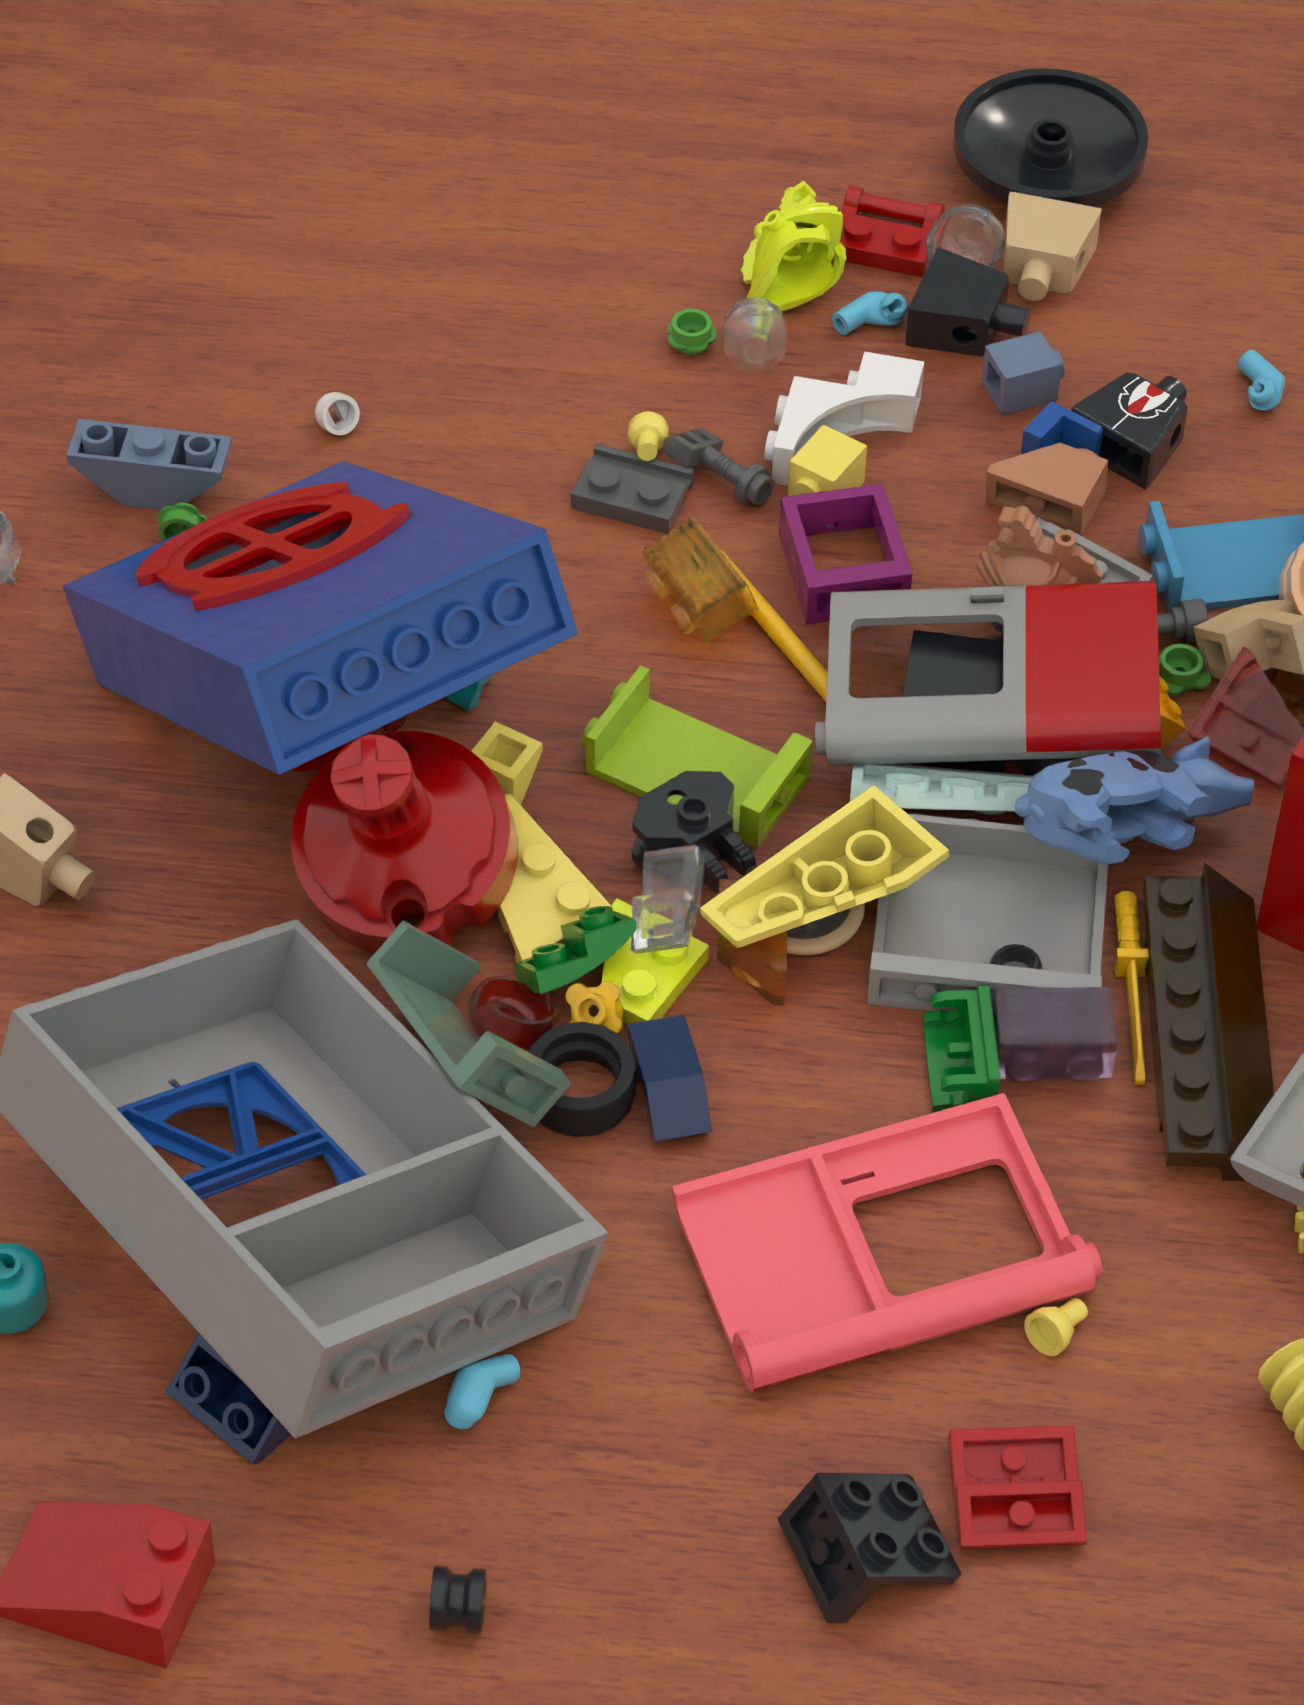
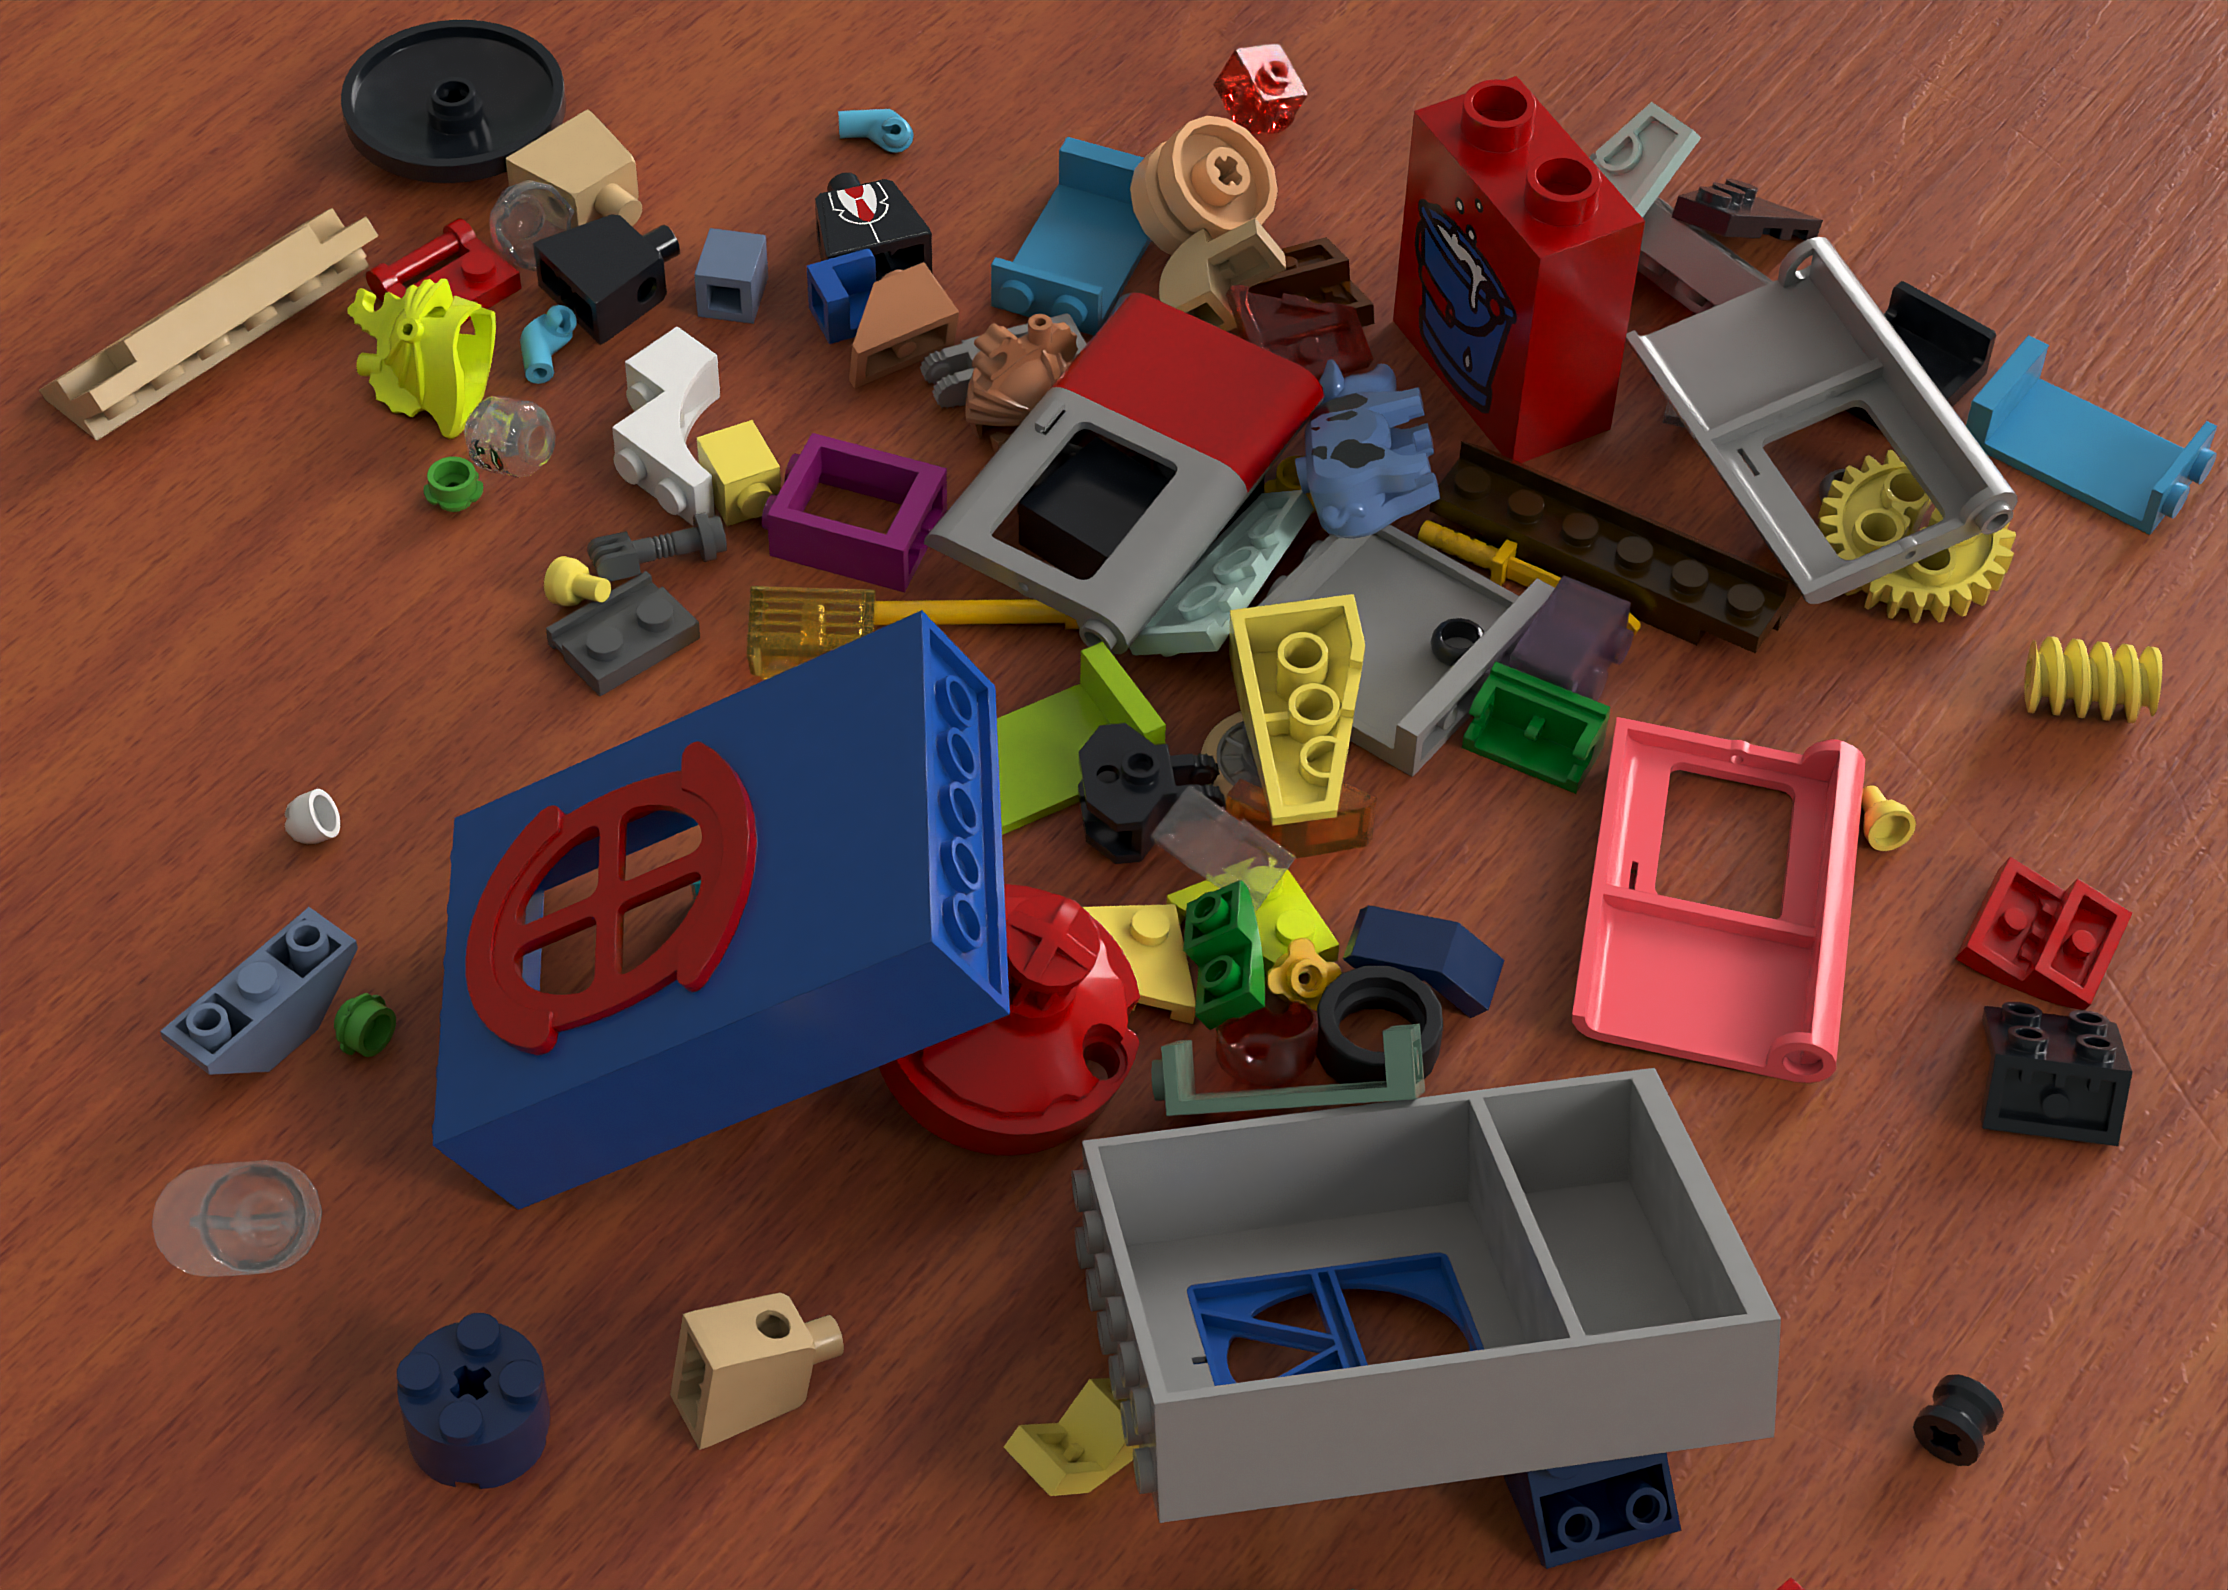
camera: 60 degrees left, 0 degrees up
(736, 137) = (210, 324): none -> tan slope

